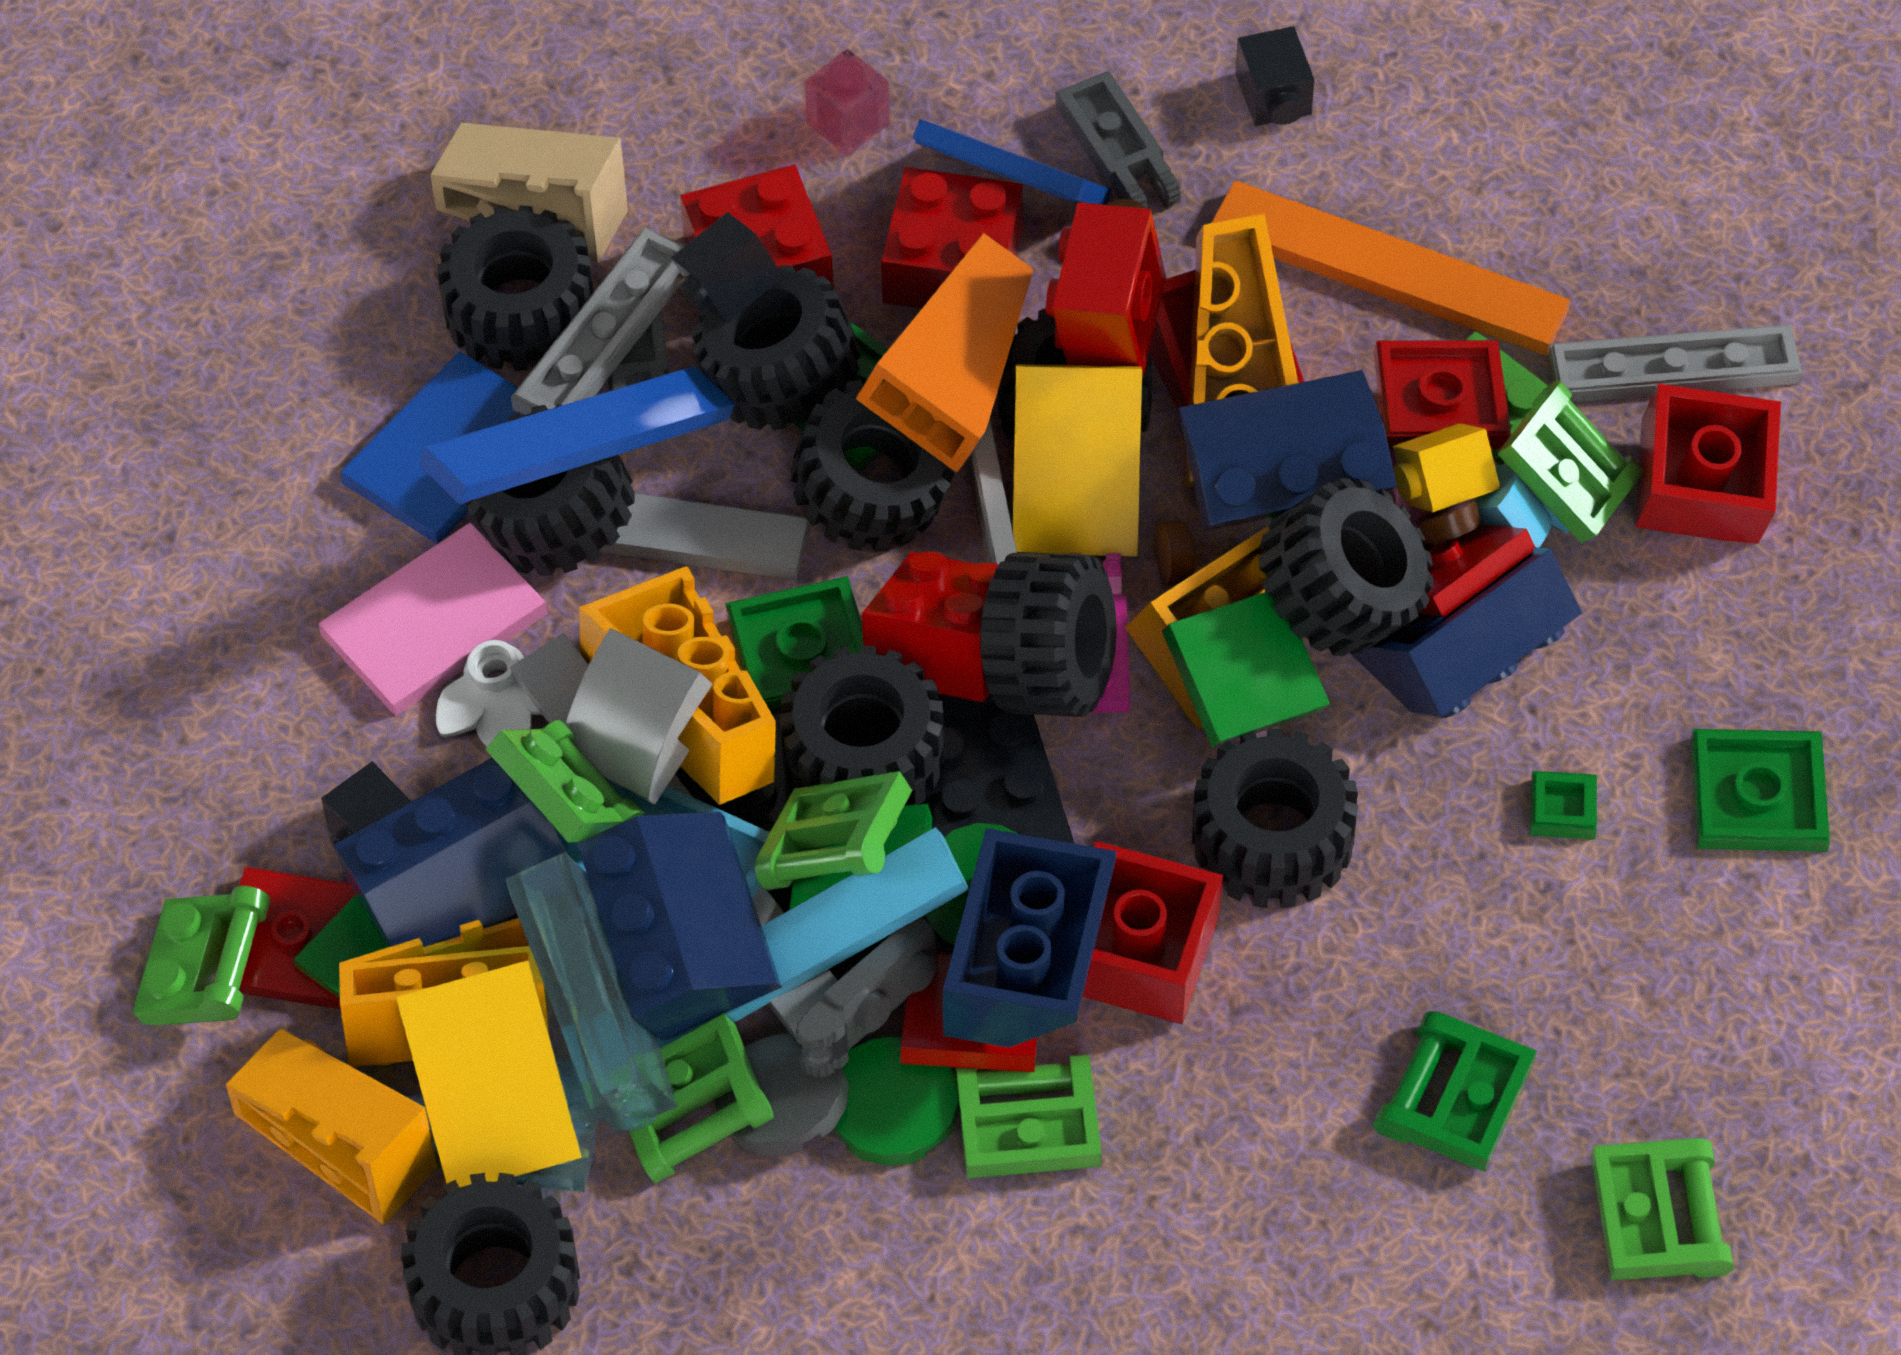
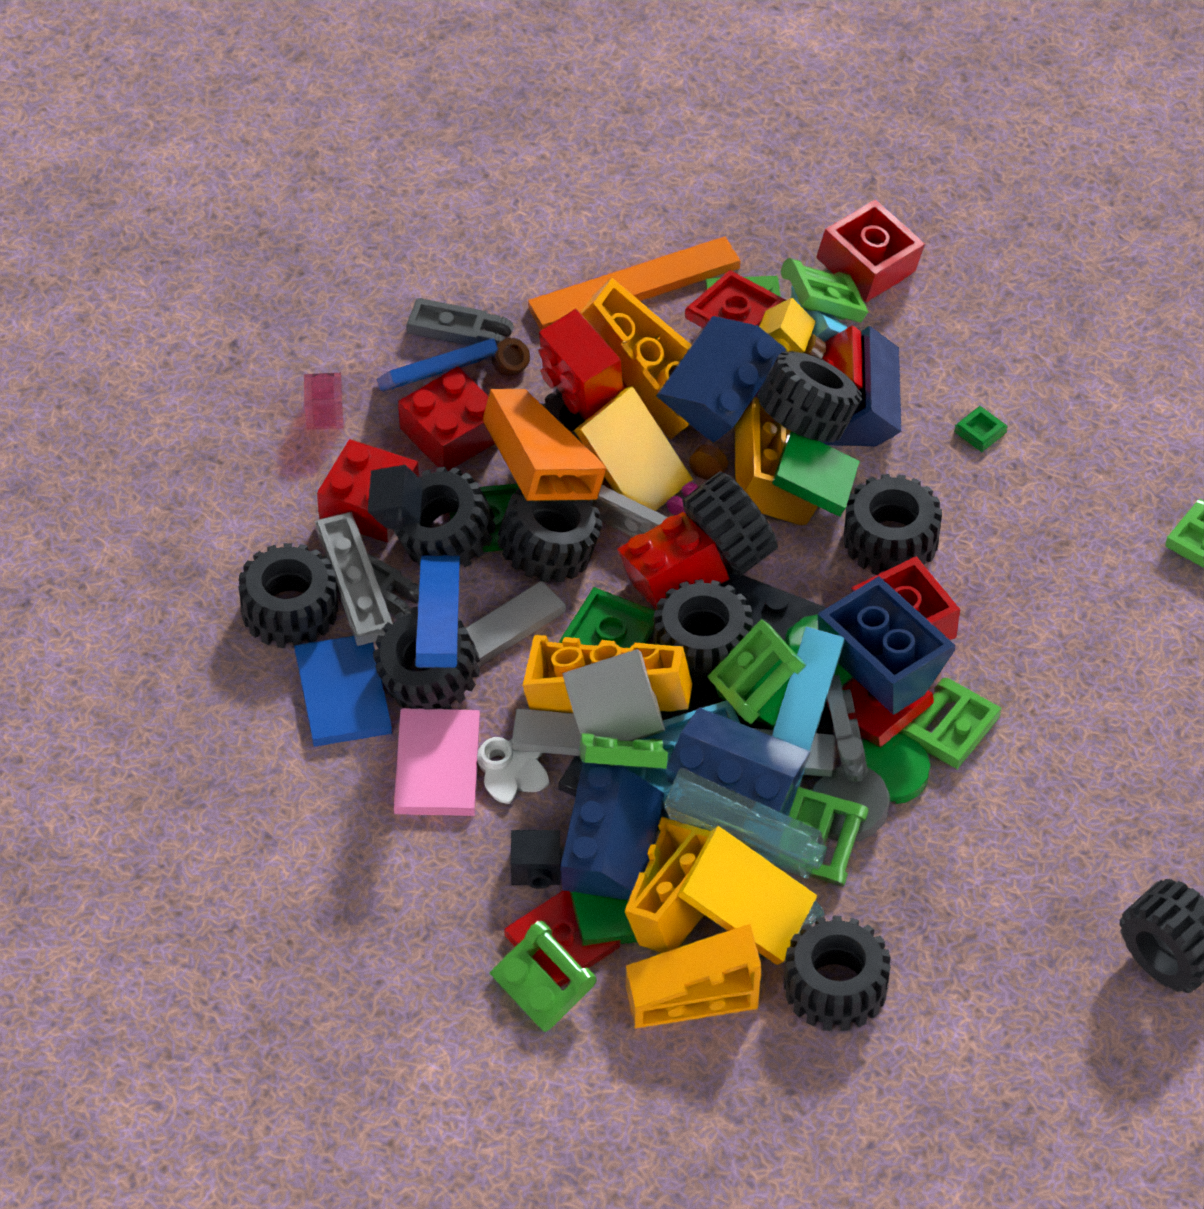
camera: 50 degrees left, 5 degrees down
(550, 170) = (217, 552): tan wedge -> none
(1274, 76) = (489, 245): black brick -> none
(1475, 1099) = (1099, 560): green plate -> none
(1688, 360) = (795, 228): light grey tile -> none
(1760, 790) = (1041, 360): green tile -> none

